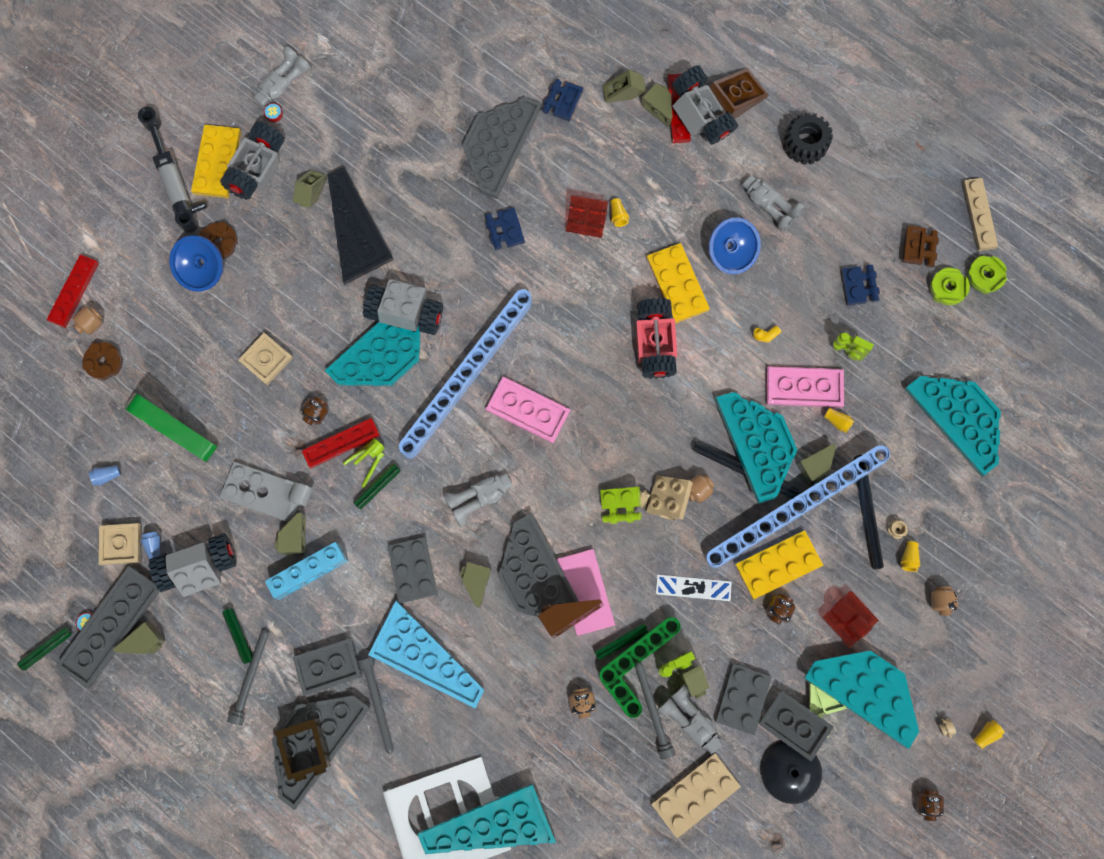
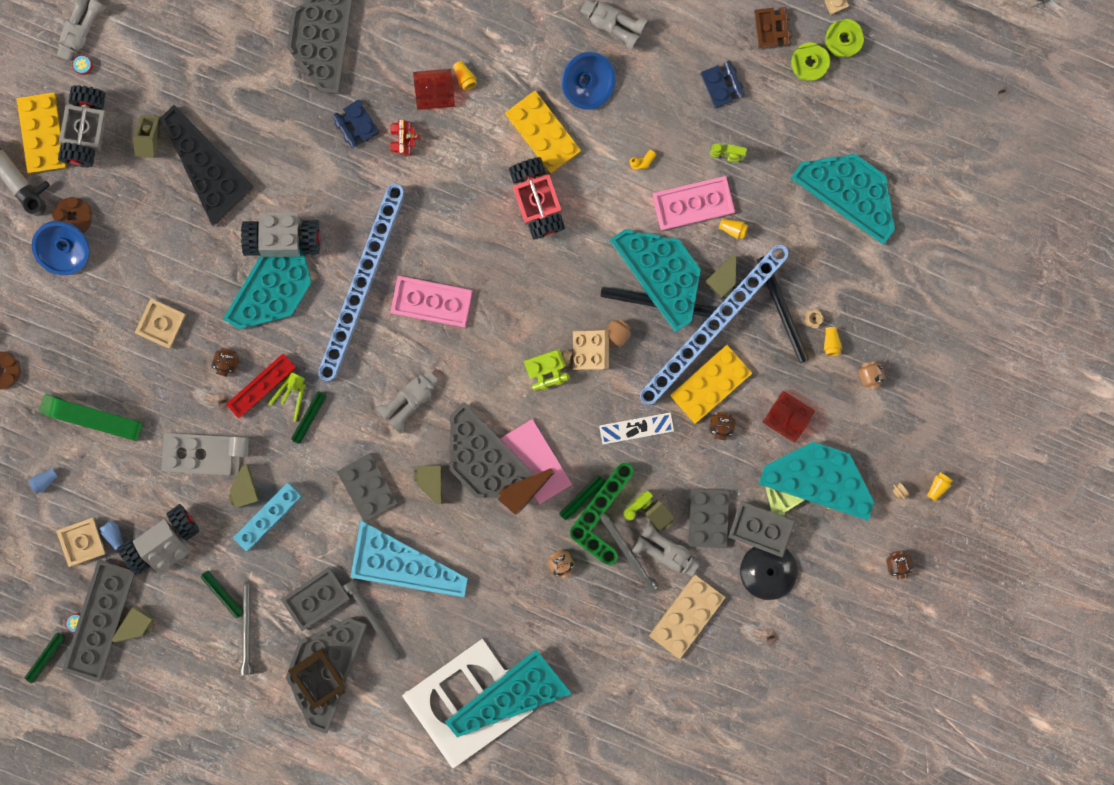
camera: 20 degrees left, 10 degrees up
(548, 252) = (406, 137): none -> red hips

